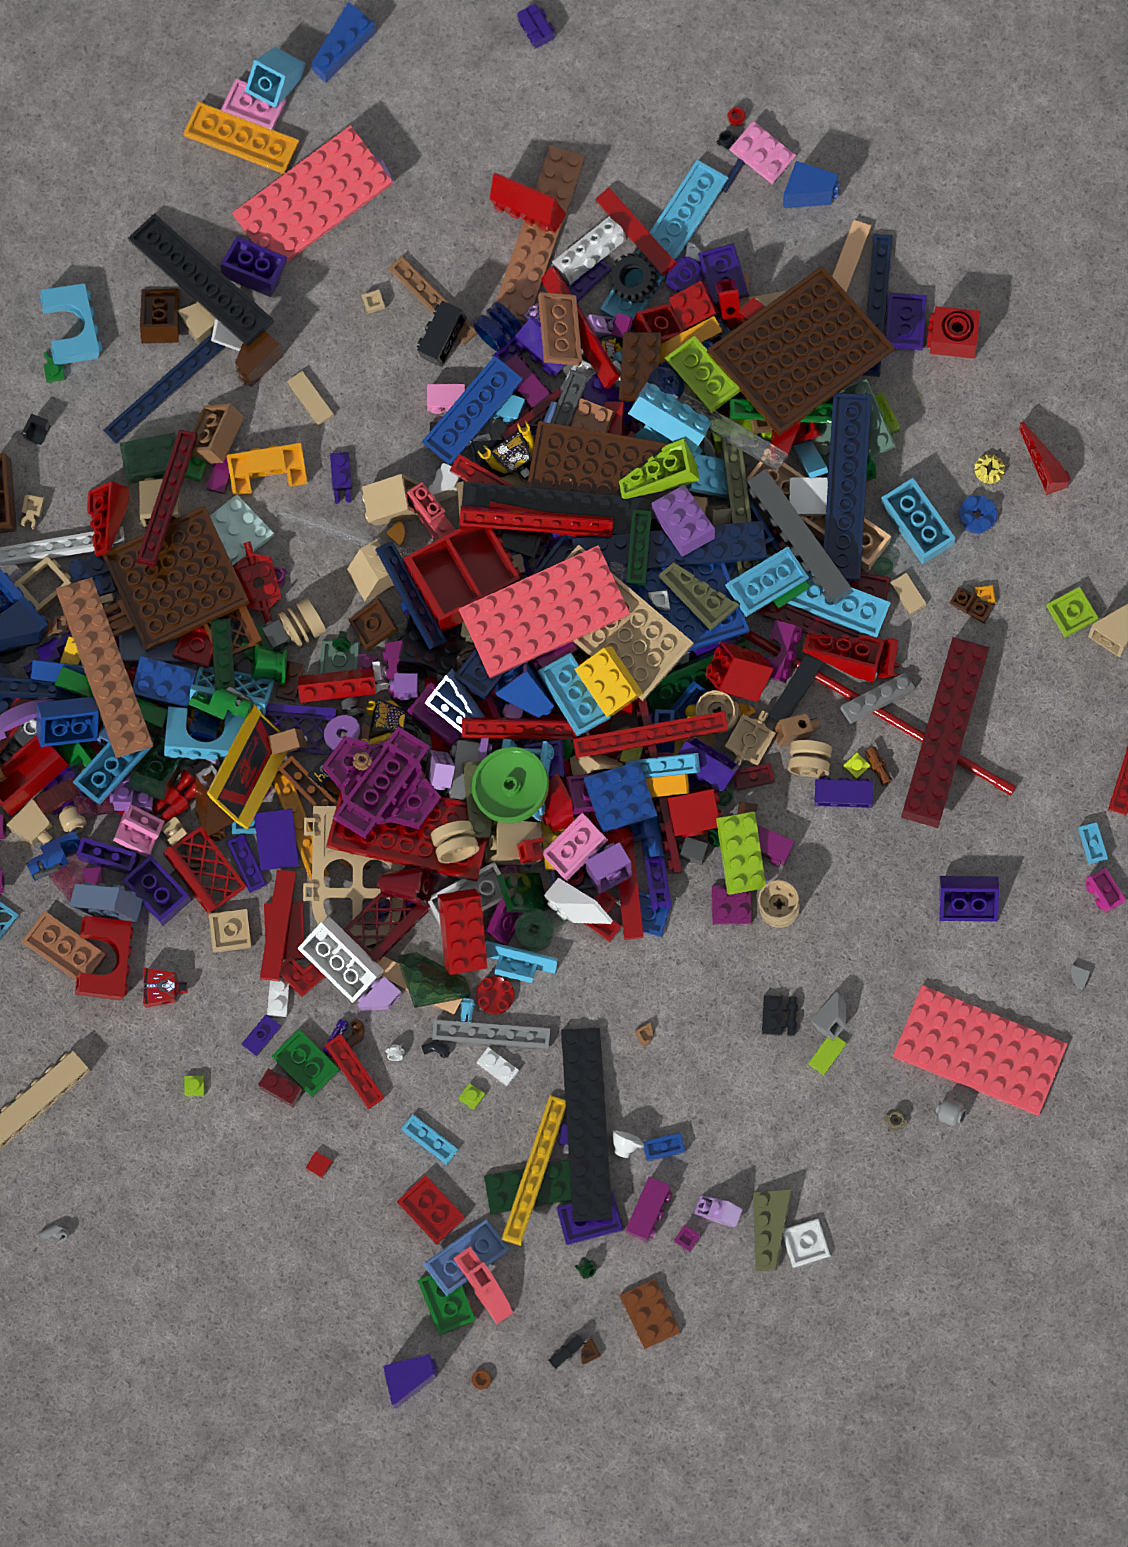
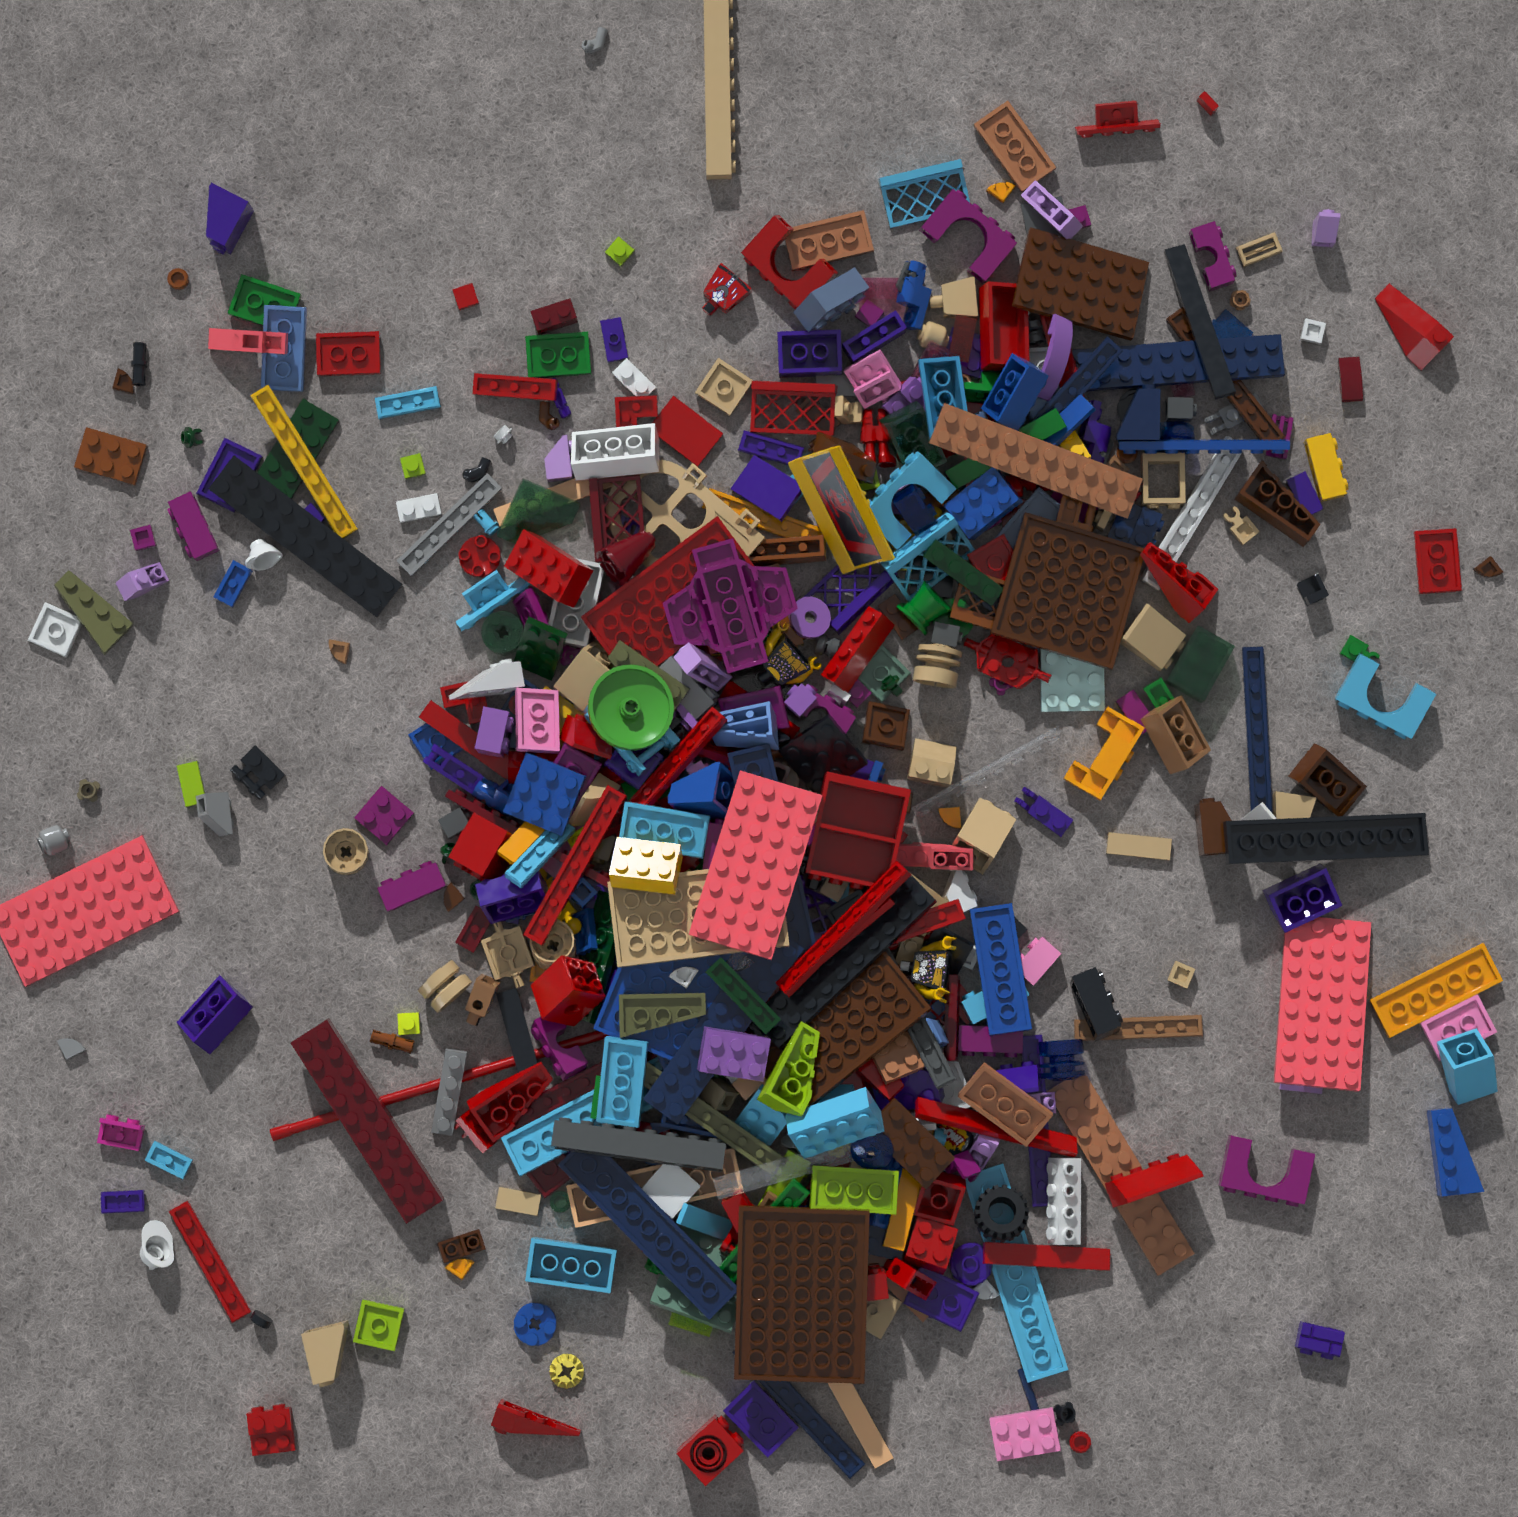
camera: 125 degrees right, 10 degrees up
(167, 498) = (1145, 641): dark red tile -> none
(222, 702) = (917, 532): green plate -> none
(278, 925) = (691, 427): red tile -> none
(287, 741) = (841, 565): medium nougat slope -> none
(318, 774) = (791, 565): black sticker -> none
(362, 765) = (755, 602): medium nougat plate -> none
(411, 595) = (876, 771): dark blue tile -> none
(453, 120) = (1291, 1188): none -> magenta arch
(454, 841) = (623, 620): tan wheel -> none
(530, 850) = (565, 681): red panel -> none
(741, 852) = (413, 856): lime plate -> none
(810, 187) = (953, 1445): blue slope -> none
(843, 792) = (394, 991): dark purple brick -> none

